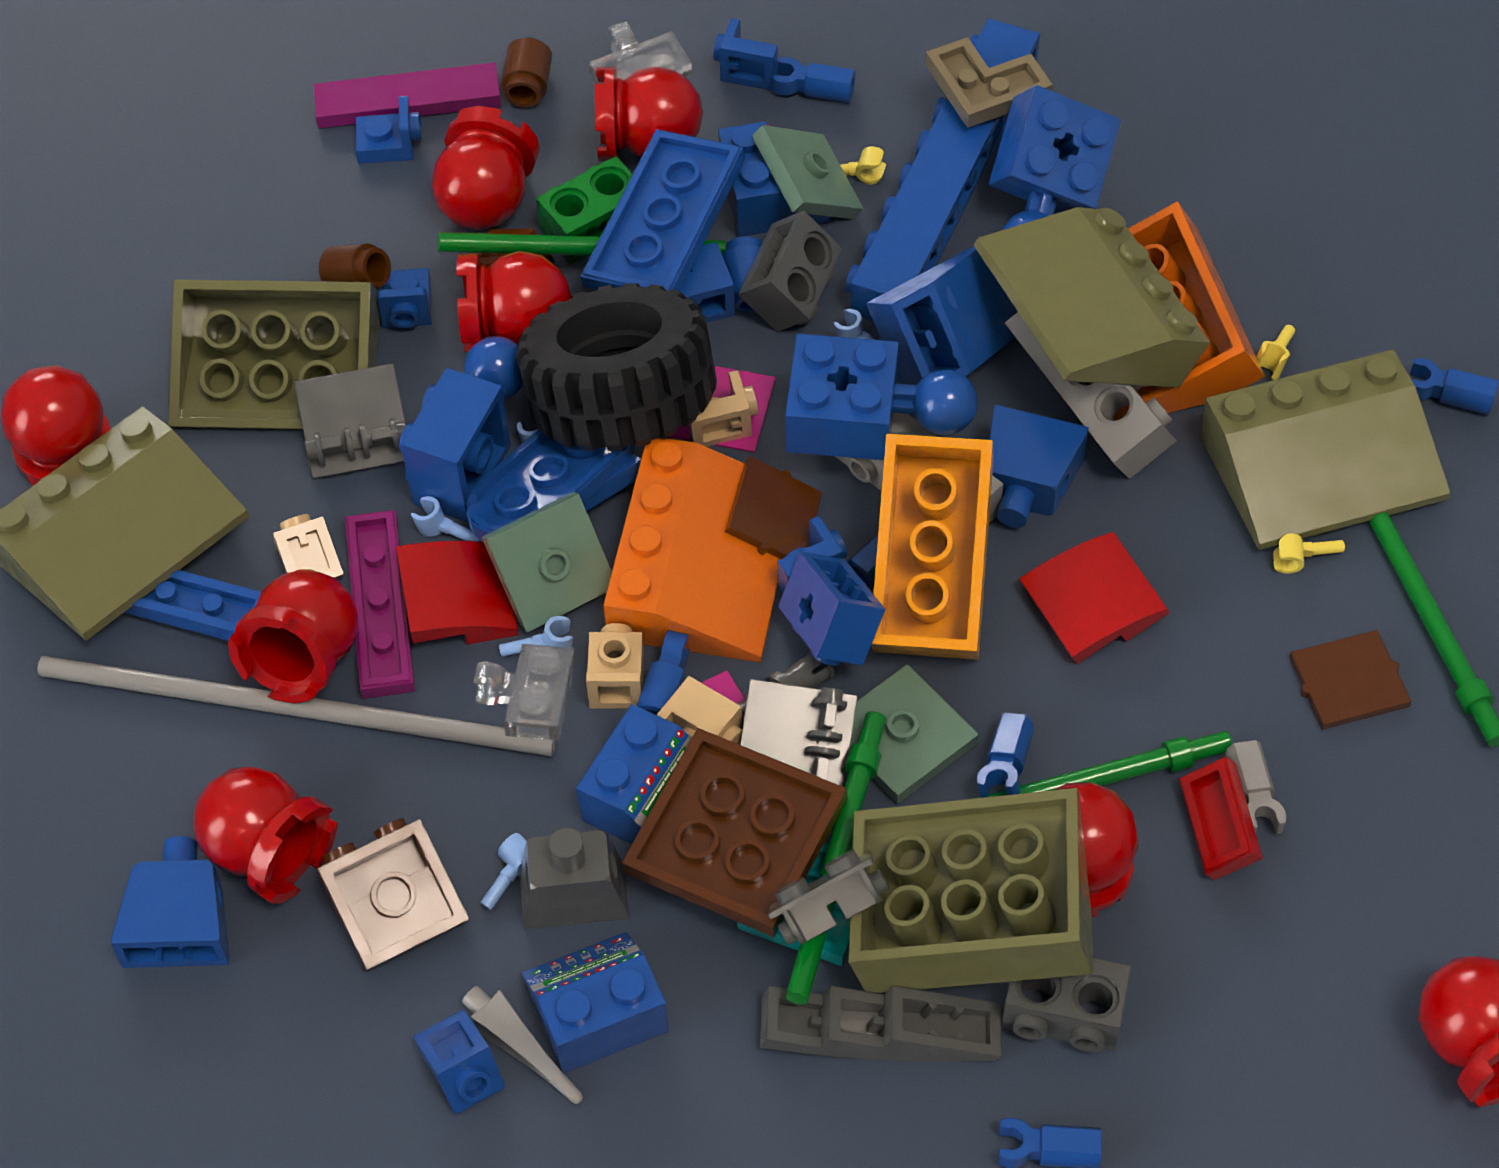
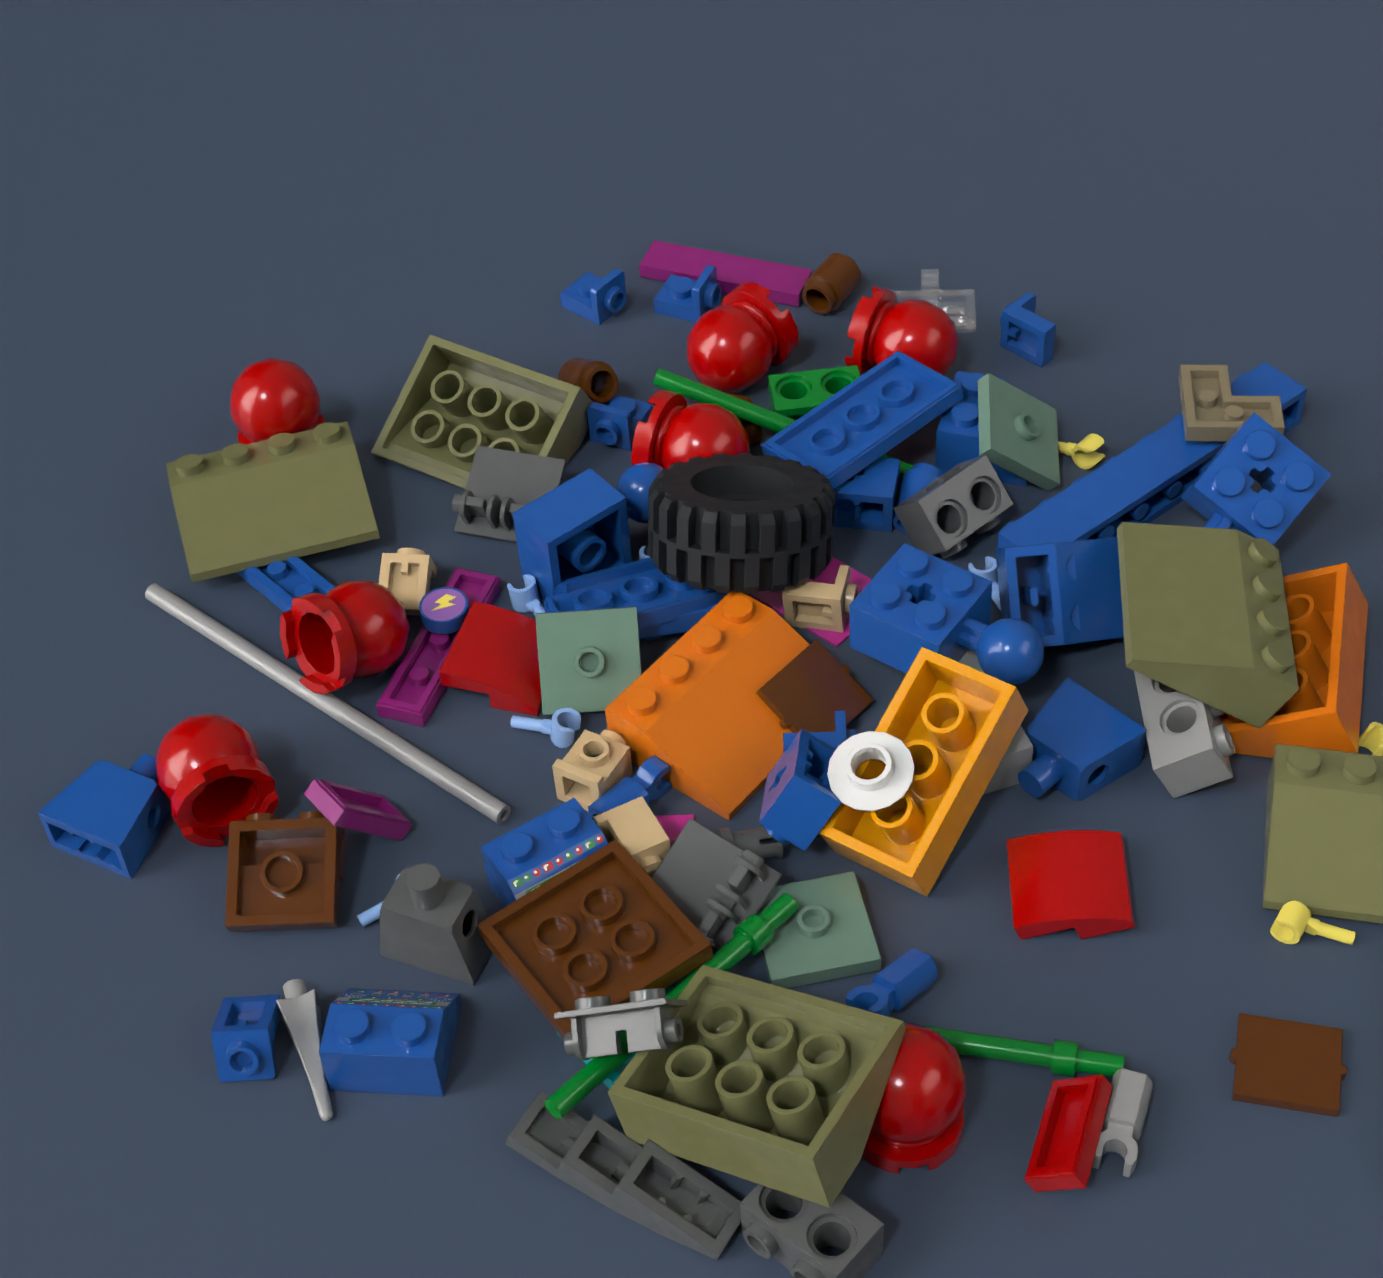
camera: 30 degrees right, 10 degrees down
(291, 169) = (596, 296): none -> blue bracket
(369, 567) = (443, 610): none -> tile
(428, 802) = (358, 809): none -> magenta tile
(533, 694) = (511, 766): clear plate -> none
(814, 80) = (1081, 369): blue bar -> none
(893, 593) = (876, 792): none -> white piece

